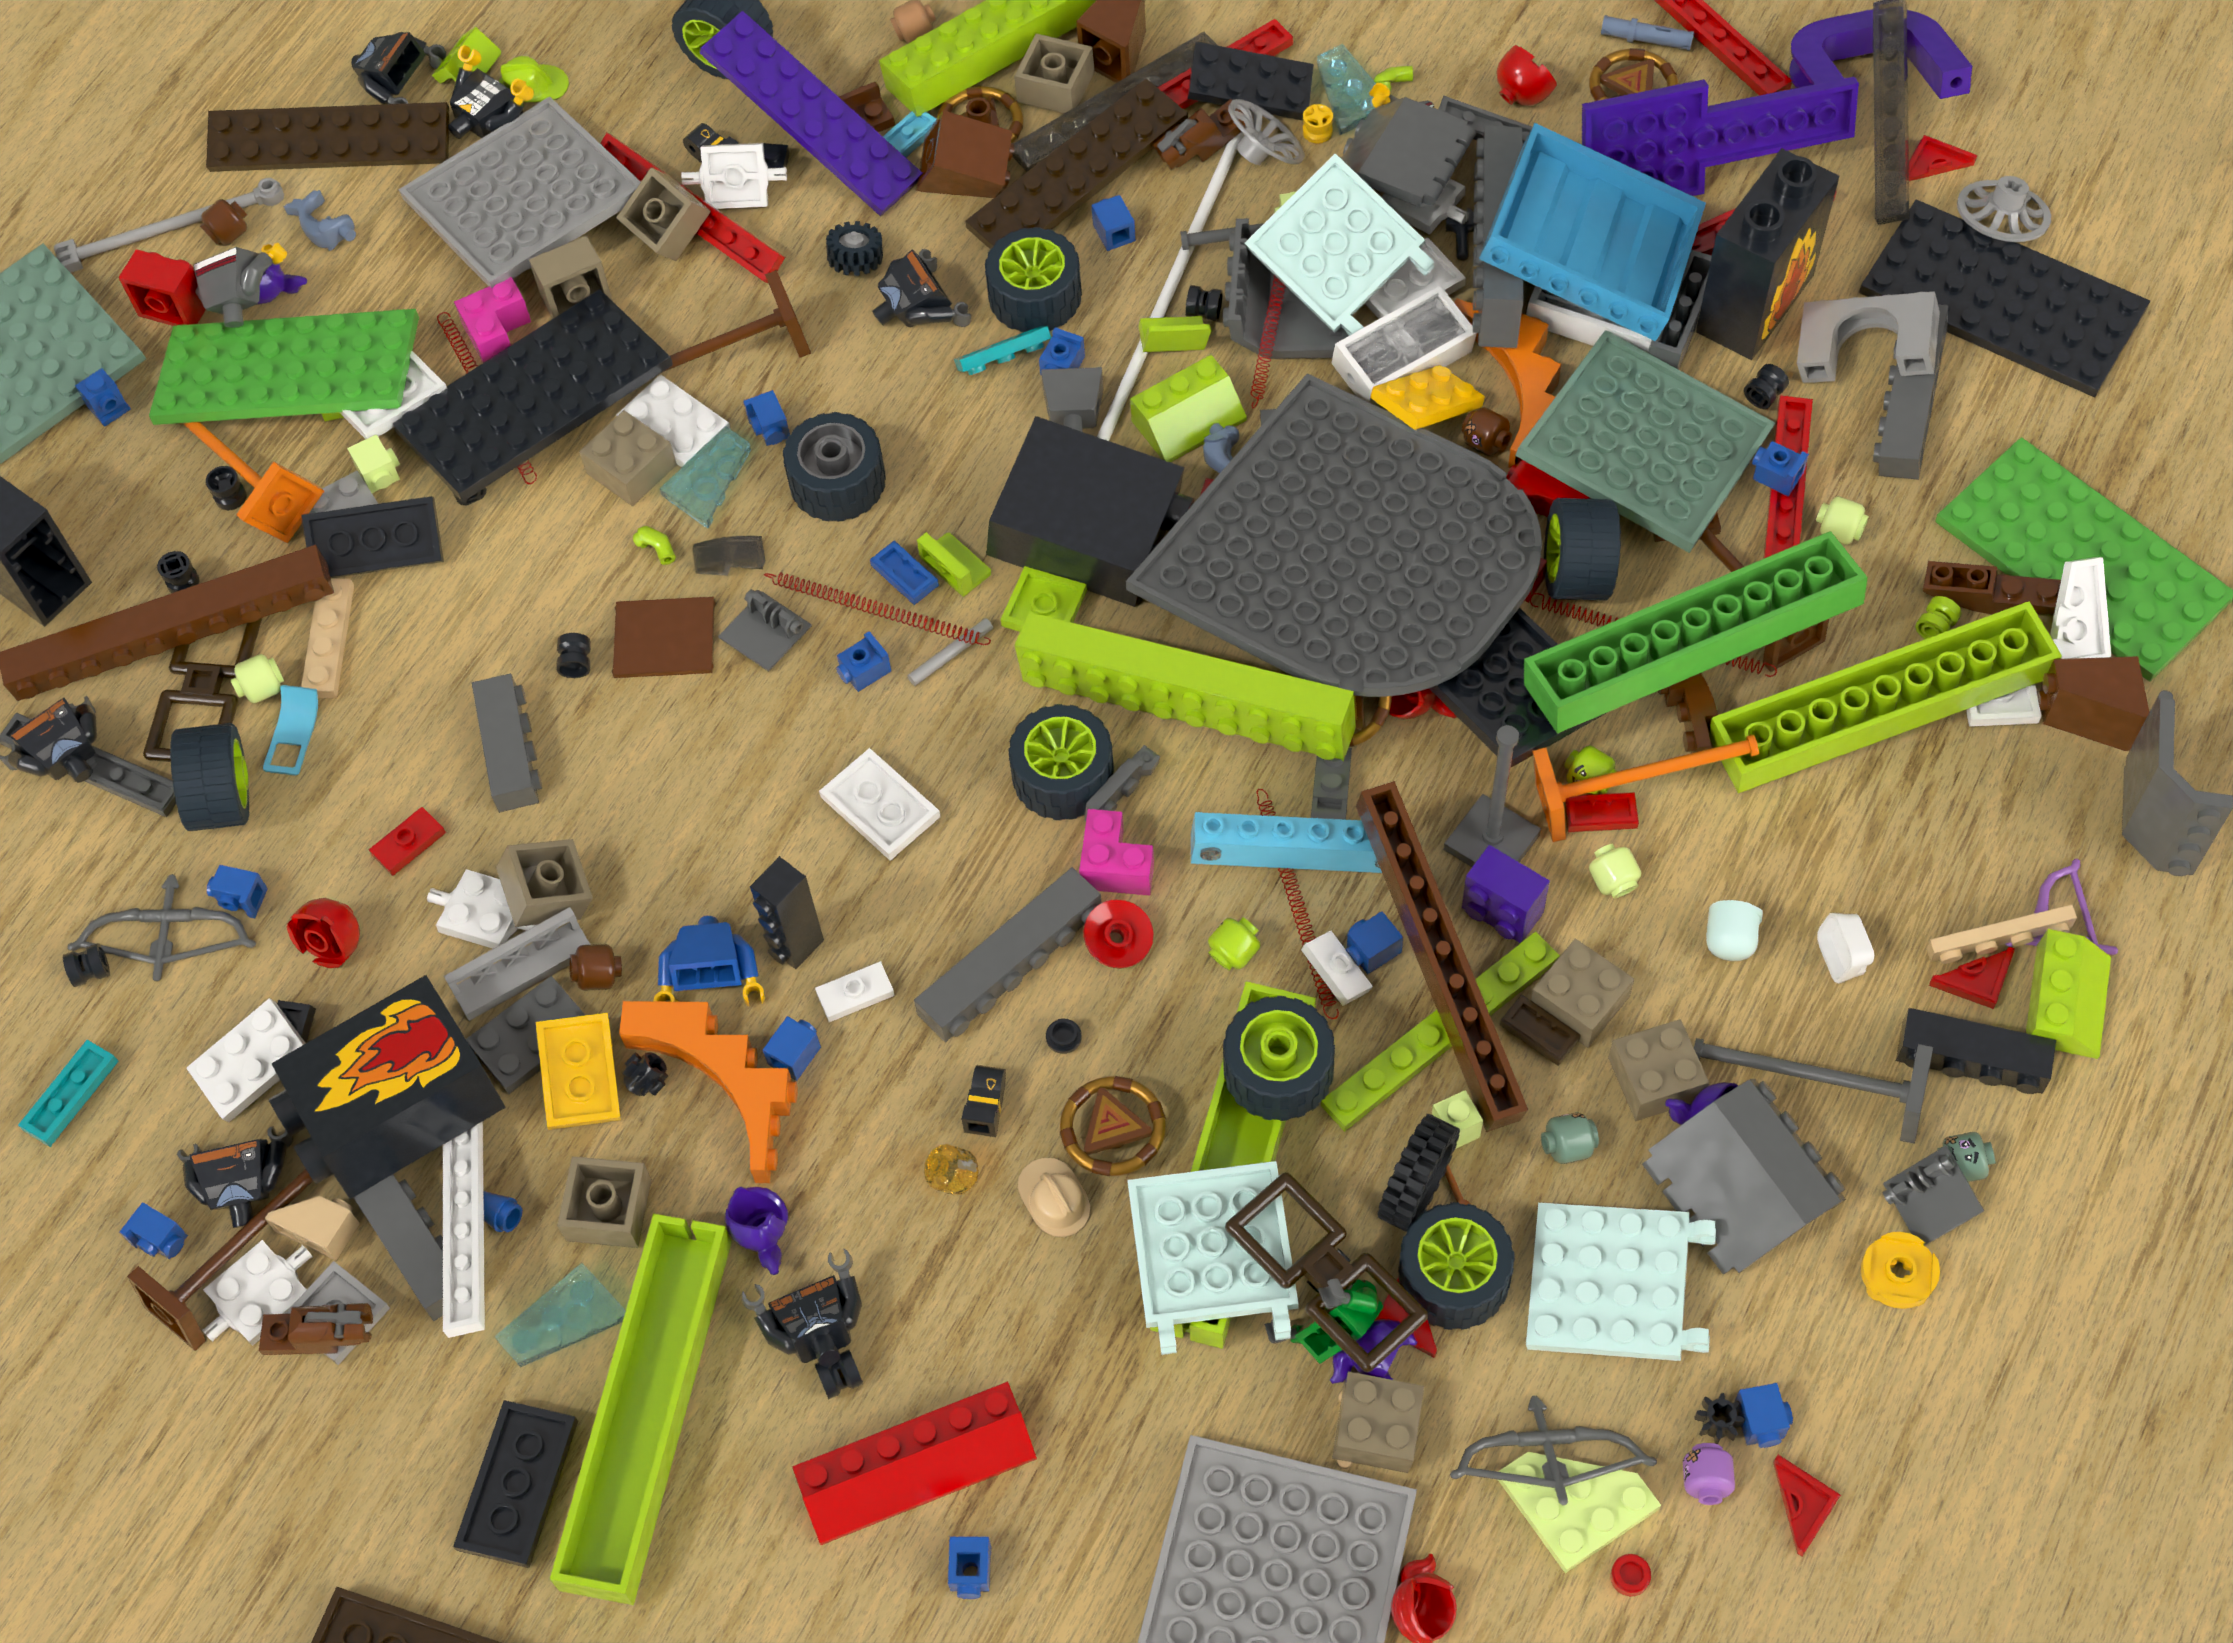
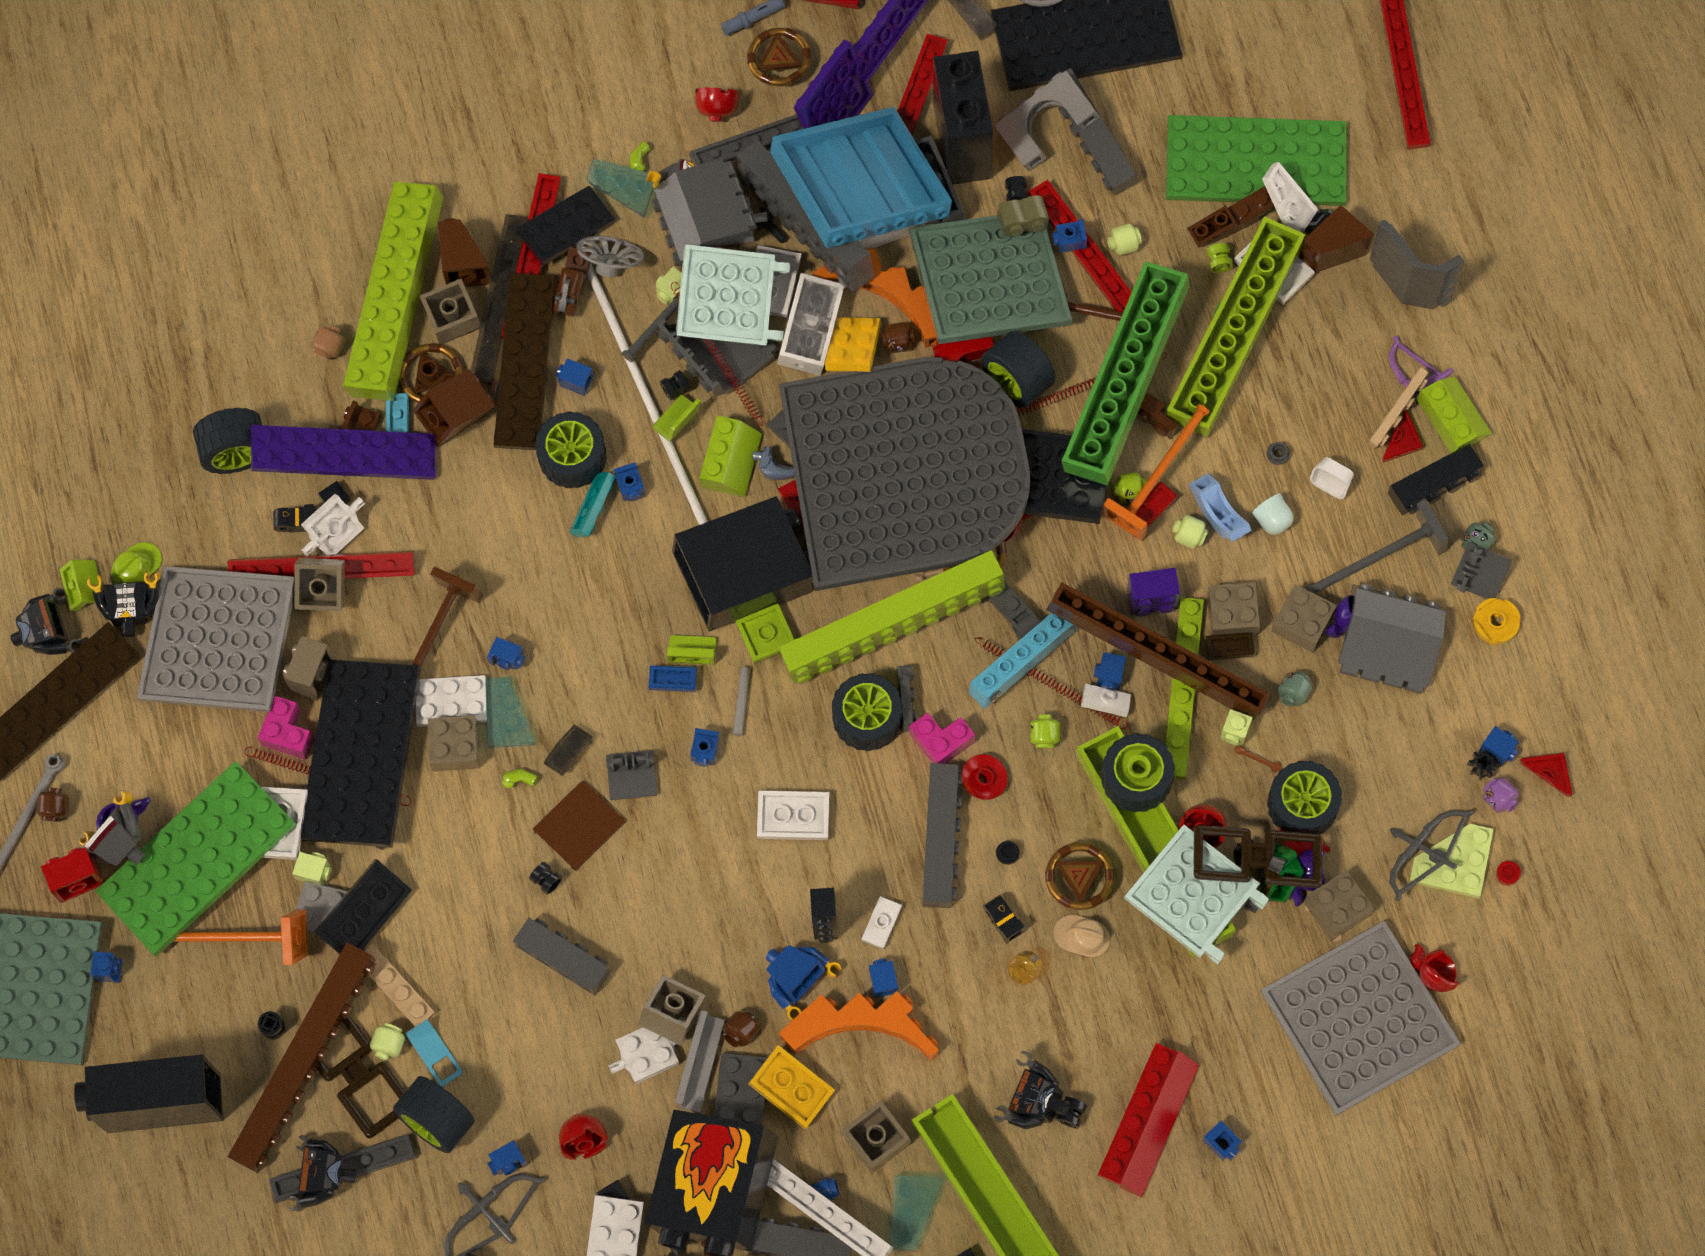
camera: 45 degrees left, 10 degrees up
(226, 488) = (238, 951): black wheel -> none
(325, 232) = (118, 763): sand blue animal -> none
(407, 841) = (565, 1053): red plate -> none
(645, 1074) = (825, 1058): black gear -> none
(757, 1222) = (966, 1075): dark purple hair -> none
(834, 466) = (576, 651): black wheel -> none
(854, 248) = (446, 513): black wheel -> none
(879, 609) = (689, 711): red piece -> none
(916, 294) = (511, 512): black torso -> none
(1073, 396) = (661, 503): dark grey torso -> none
(1317, 123) = (624, 216): yellow wheel -> none
(1318, 1180) = (1204, 815): none -> red cylinder
(1418, 1172) = (1250, 770): black tyre -> none
(1489, 820) = (1112, 561): dark grey tile -> none
(1613, 1281) = (1377, 742): light aqua plate -> none
(1672, 870) = (1217, 508): none -> light blue arch
(1744, 407) = (1023, 216): none -> olive brick
(1809, 865) = (1280, 447): none -> dark grey plate

